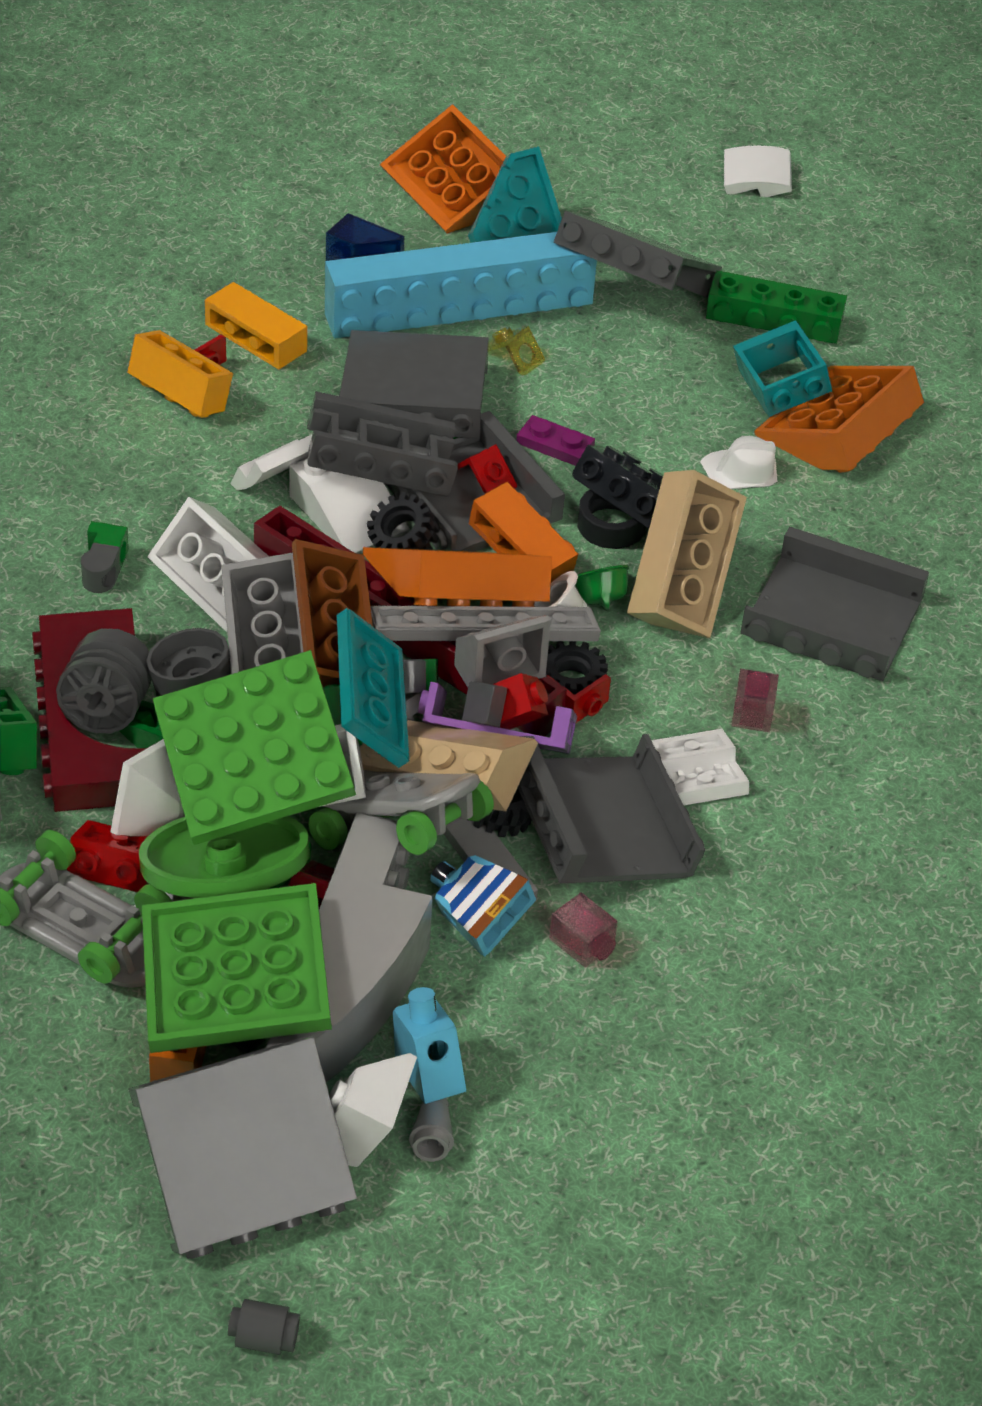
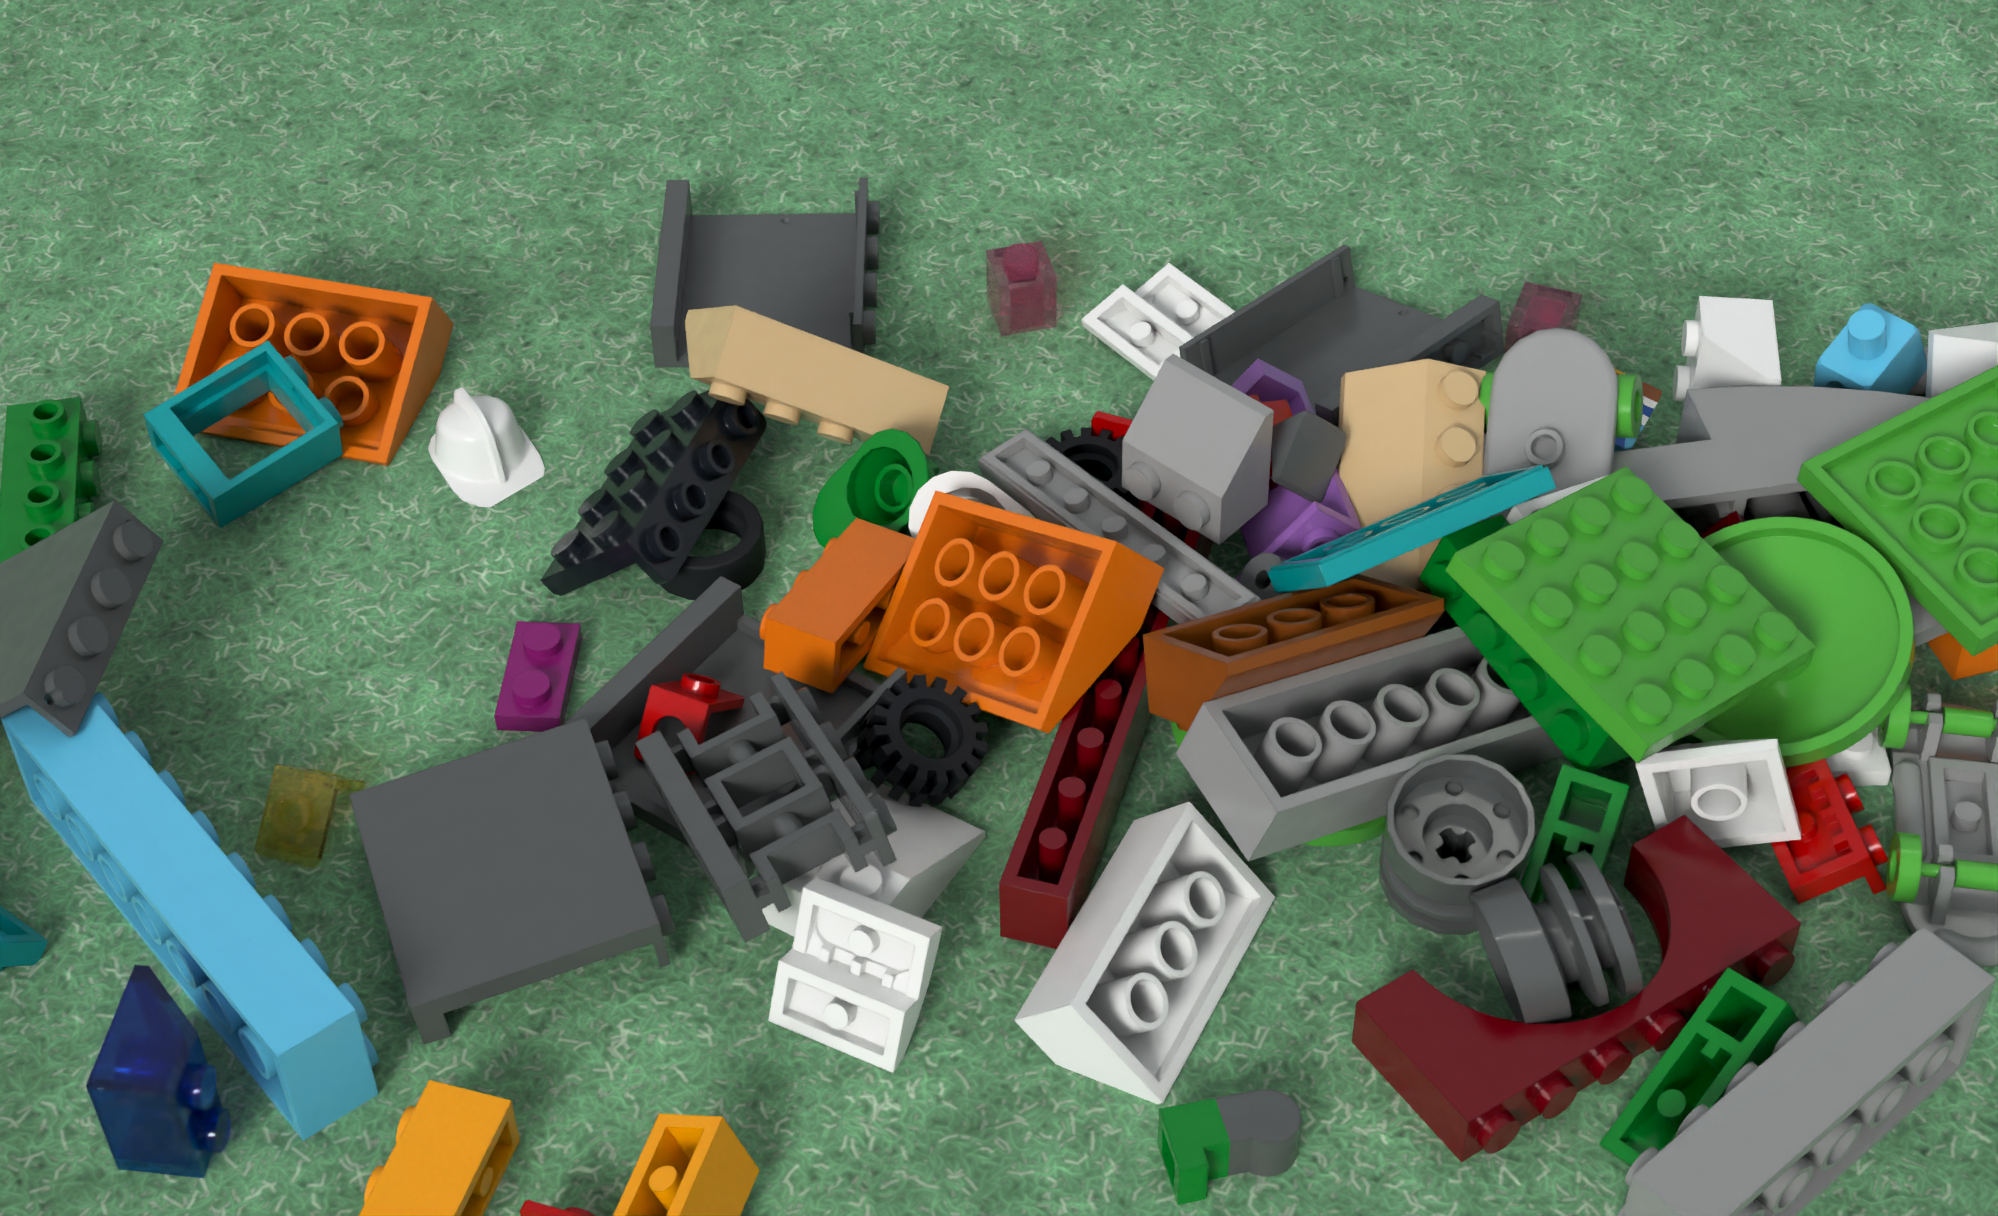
camera: 110 degrees left, 0 degrees up
(467, 974) = (1728, 346): none -> white slope

